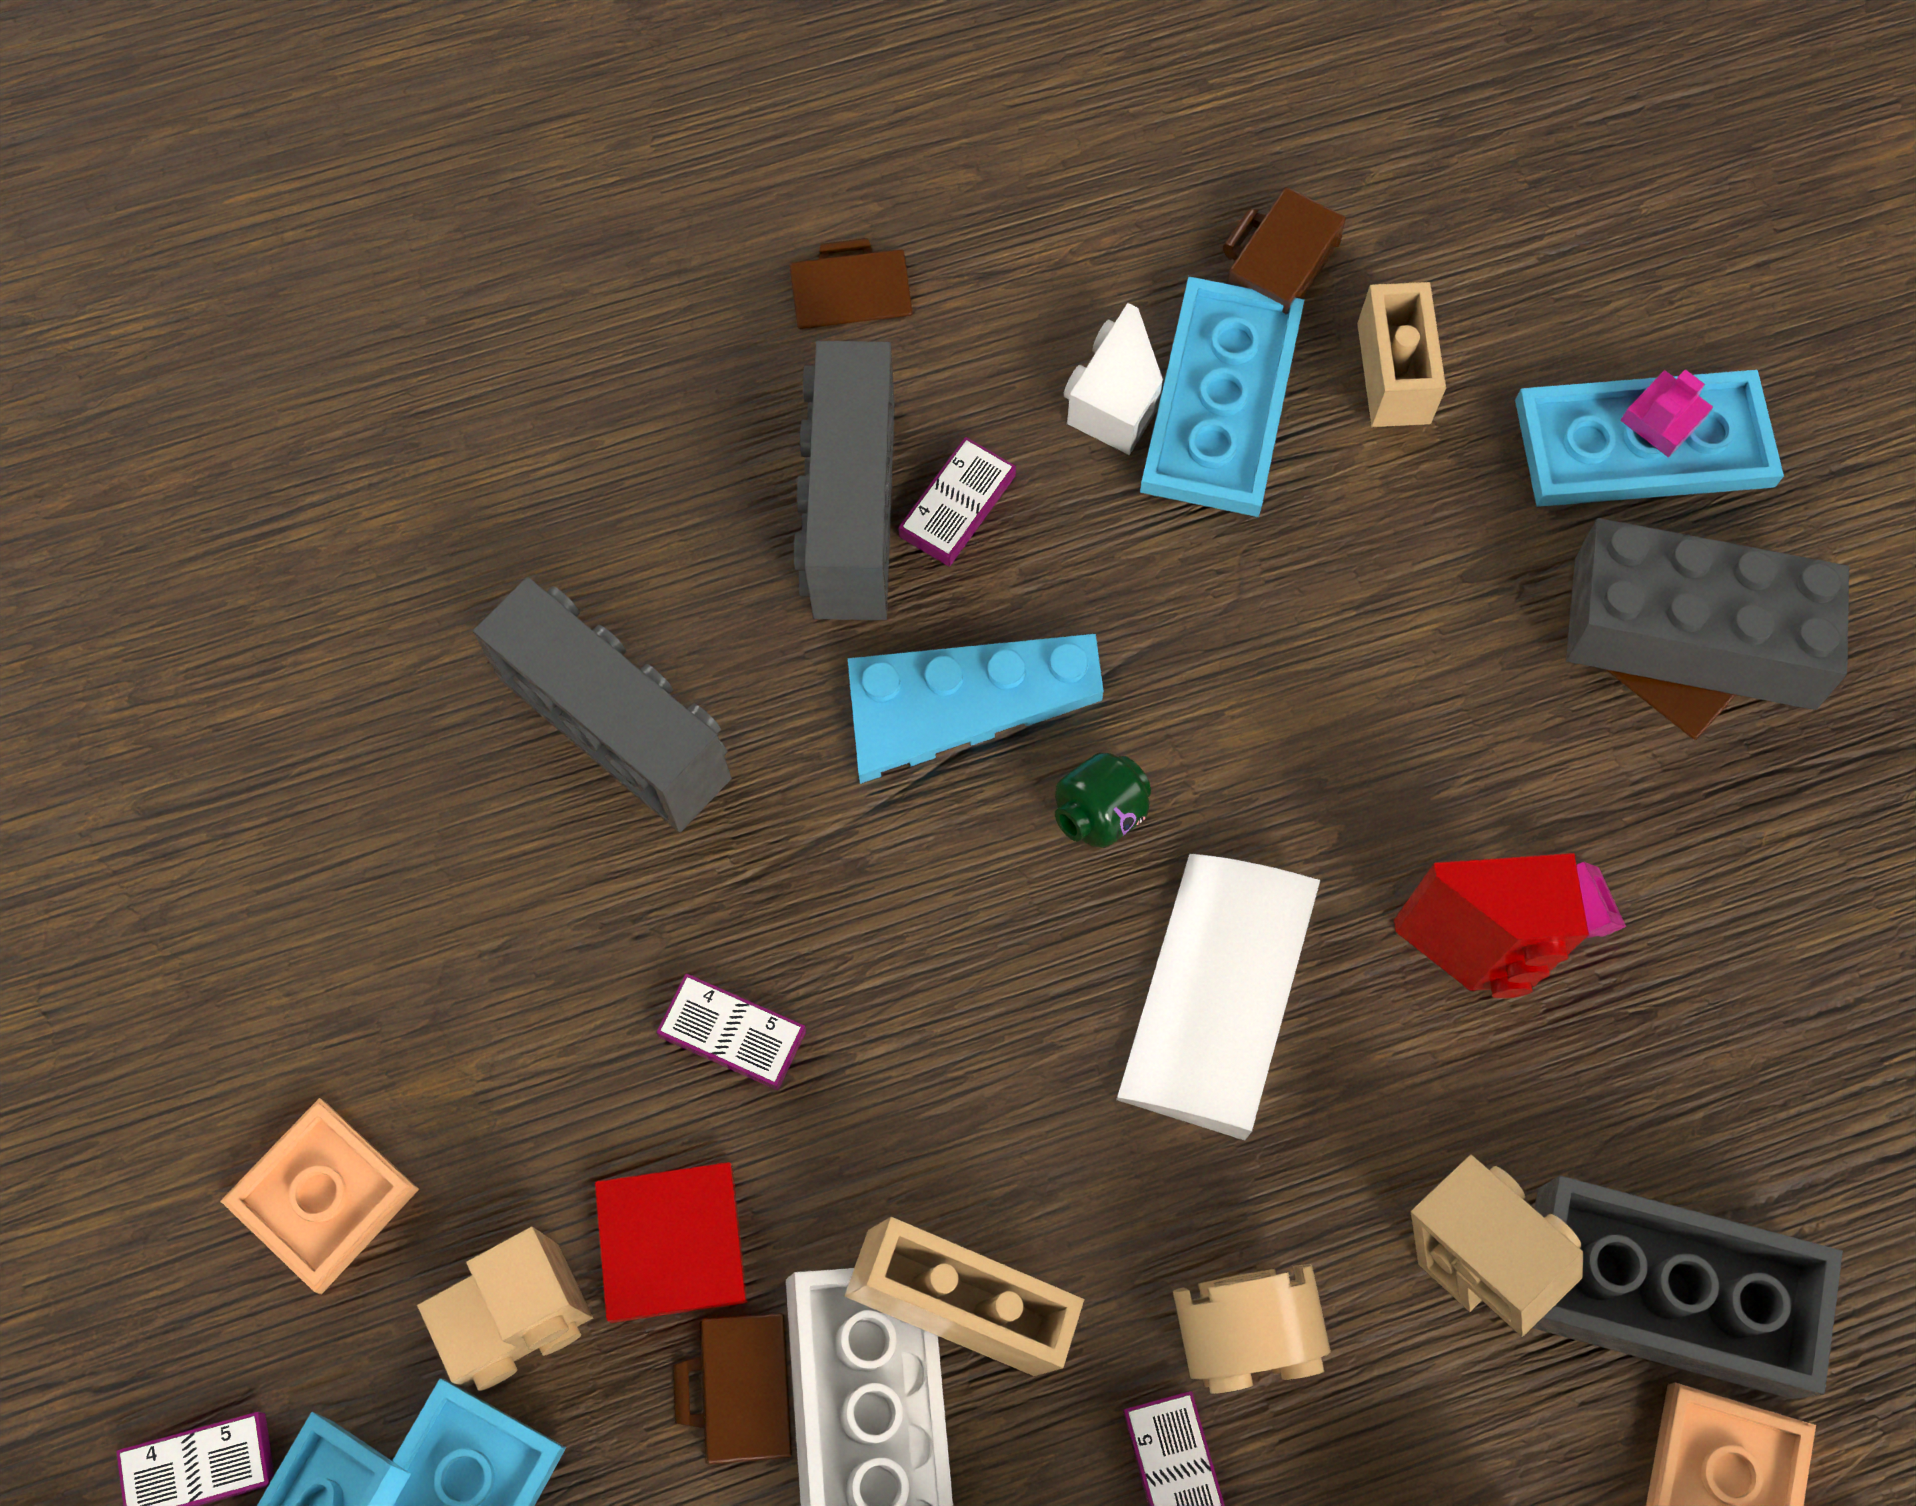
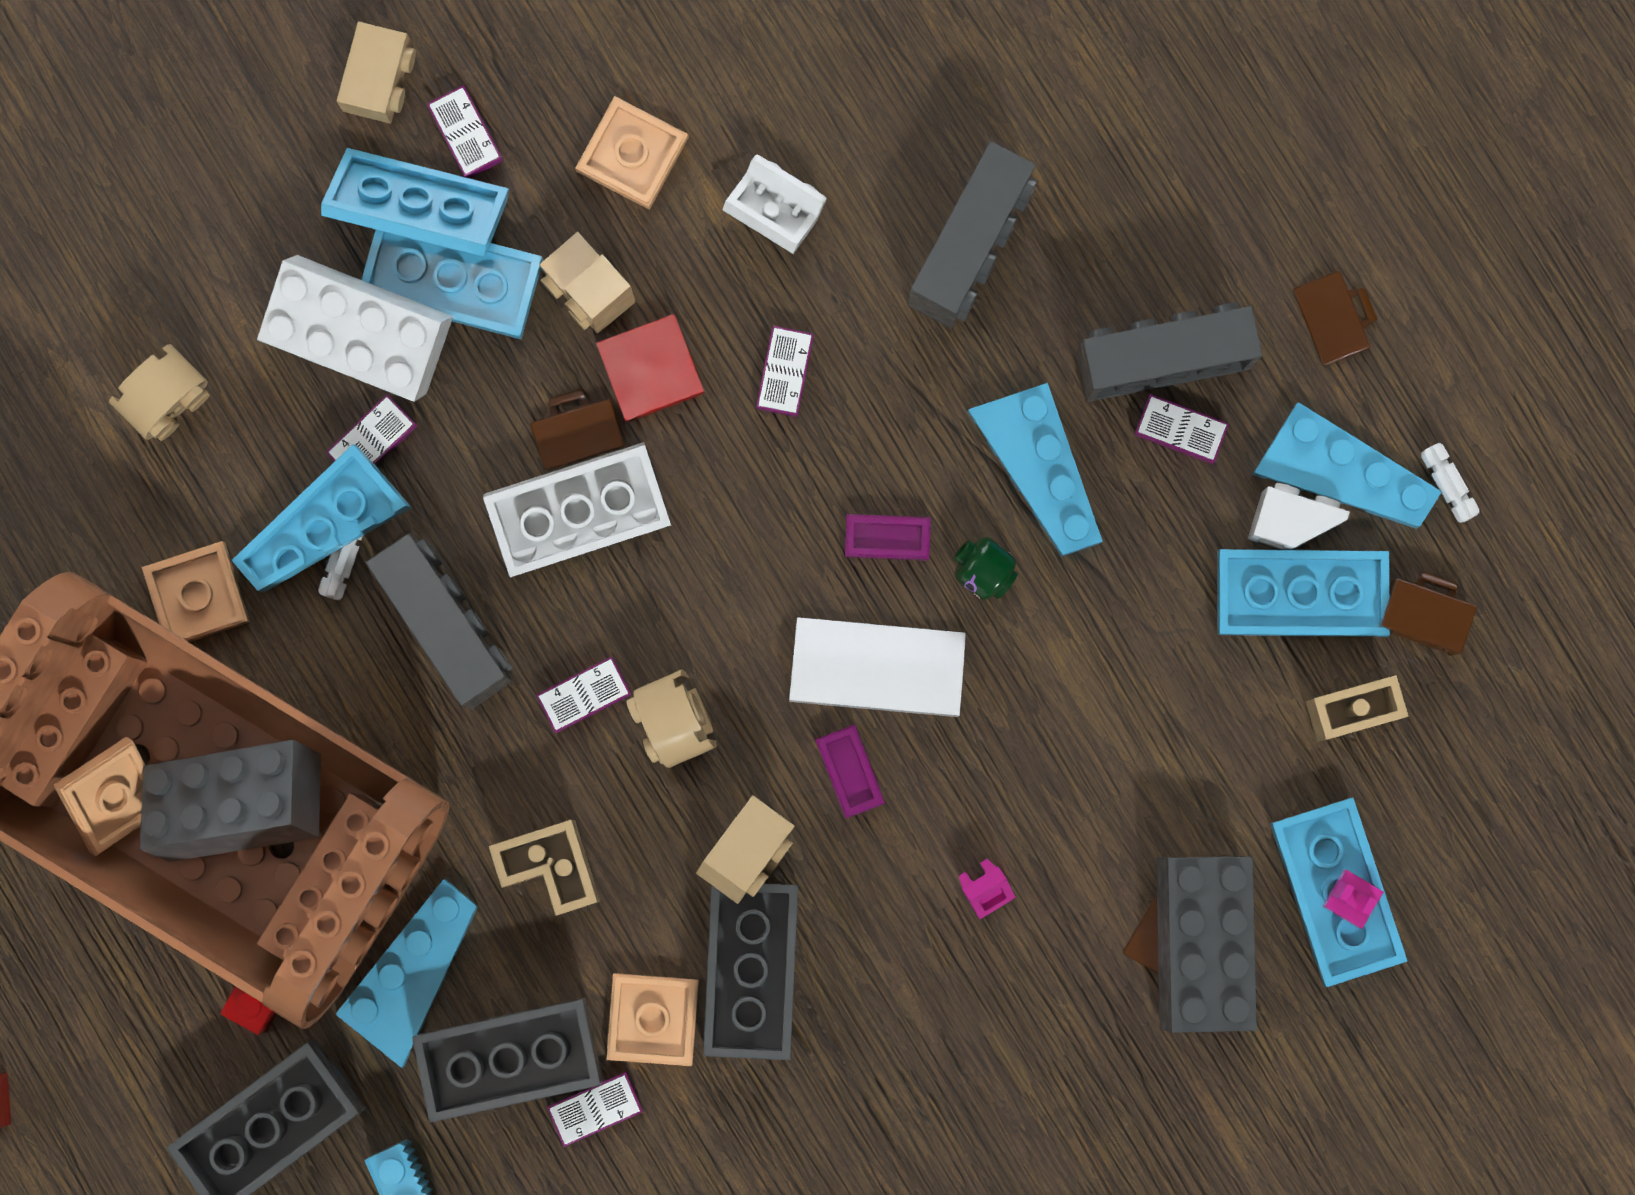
camera: 75 degrees right, 15 degrees up
(468, 984) = (775, 204): none -> white bracket
(964, 1297) = (650, 546): tan brick -> none
(1022, 935) = (887, 537): none -> magenta tile
(1053, 322) = (1336, 465): none -> medium azure wing
(1109, 194) = (1450, 482): none -> white axle
(1371, 1069) = (850, 771): none -> magenta tile
(1497, 920) = (948, 825): red slope -> none

